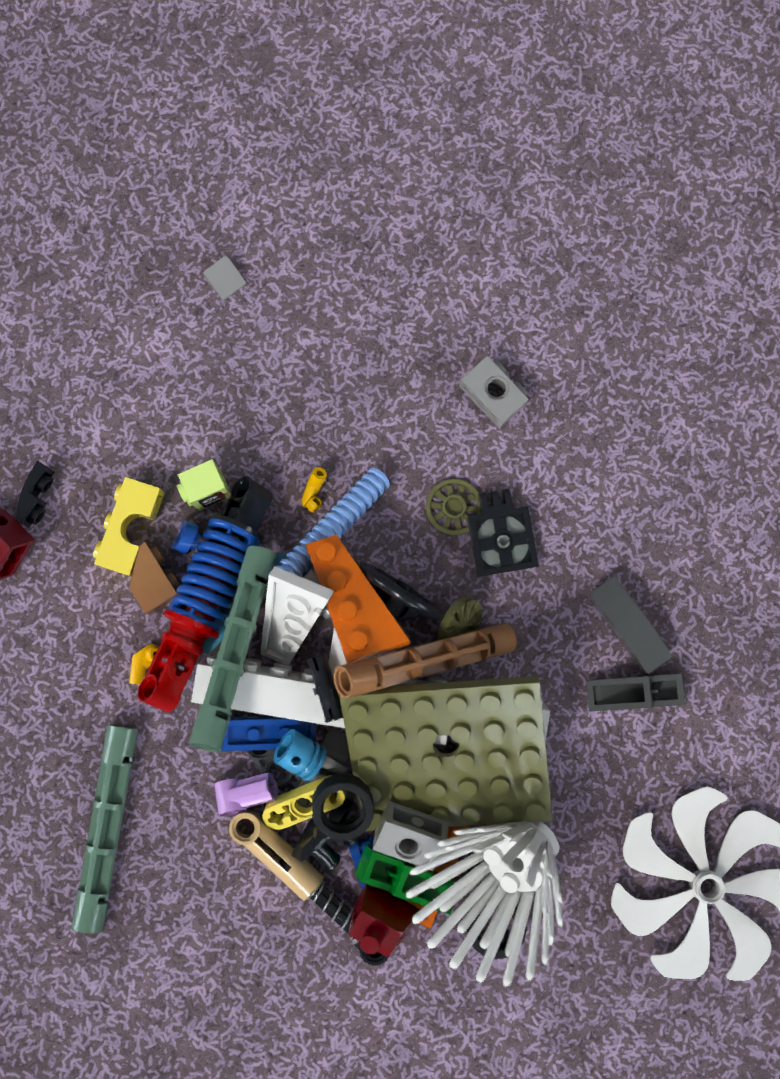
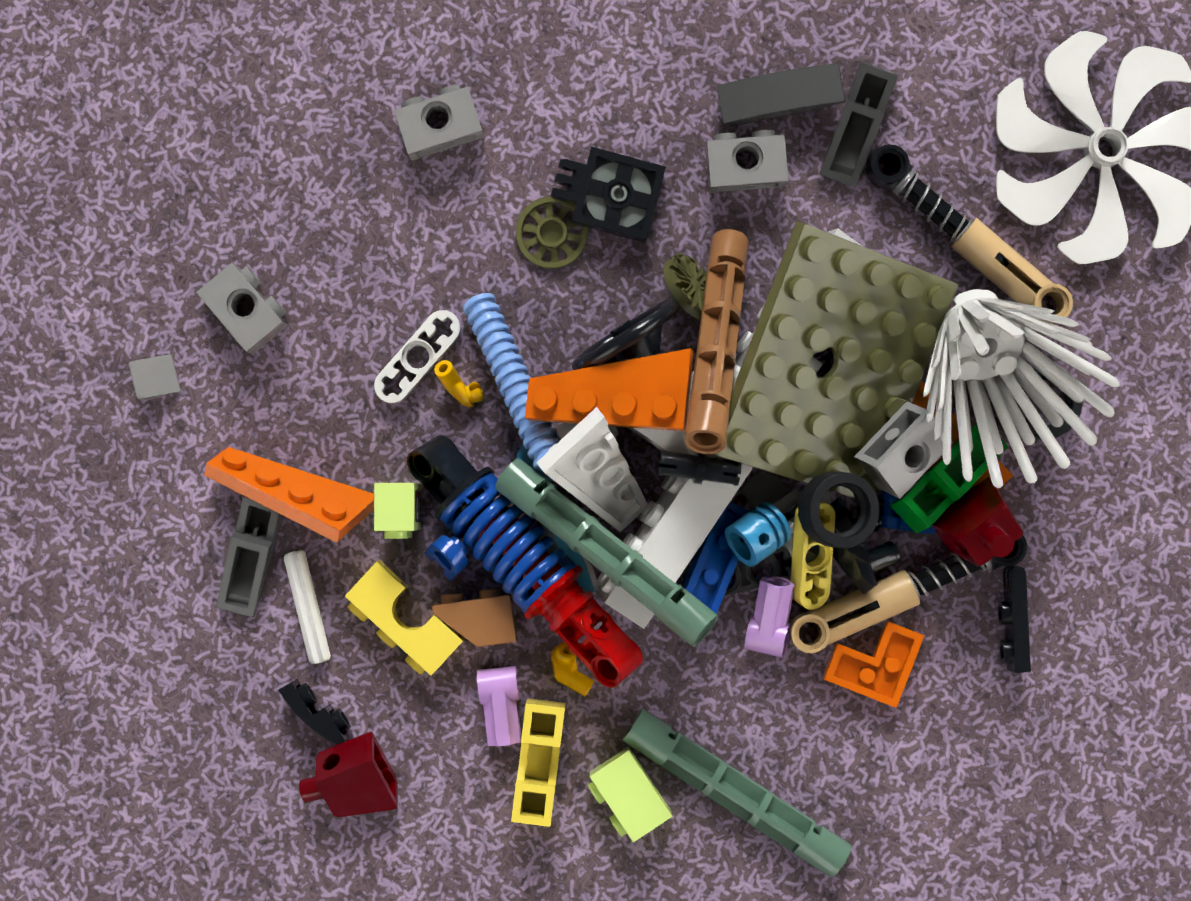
camera: 65 degrees left, 5 degrees up
(64, 671) = (538, 762): none -> light yellow arch
(69, 748) = (629, 794): none -> yellowish green brick
(101, 621) = (499, 697): none -> lavender piece
(108, 455) = (307, 607): none -> white axle
(131, 398) = (249, 558): none -> dark grey slope
(183, 414) = (301, 496): none -> orange wing
(238, 895) = (883, 673): none -> orange plate
(300, 299) = (225, 293): none -> light grey brick
(317, 441) = (405, 384): none -> white beam
(327, 977) = (1014, 615): none -> black hinge
(569, 642) = (727, 175): none -> light grey brick
(592, 816) = (969, 238): none -> piece

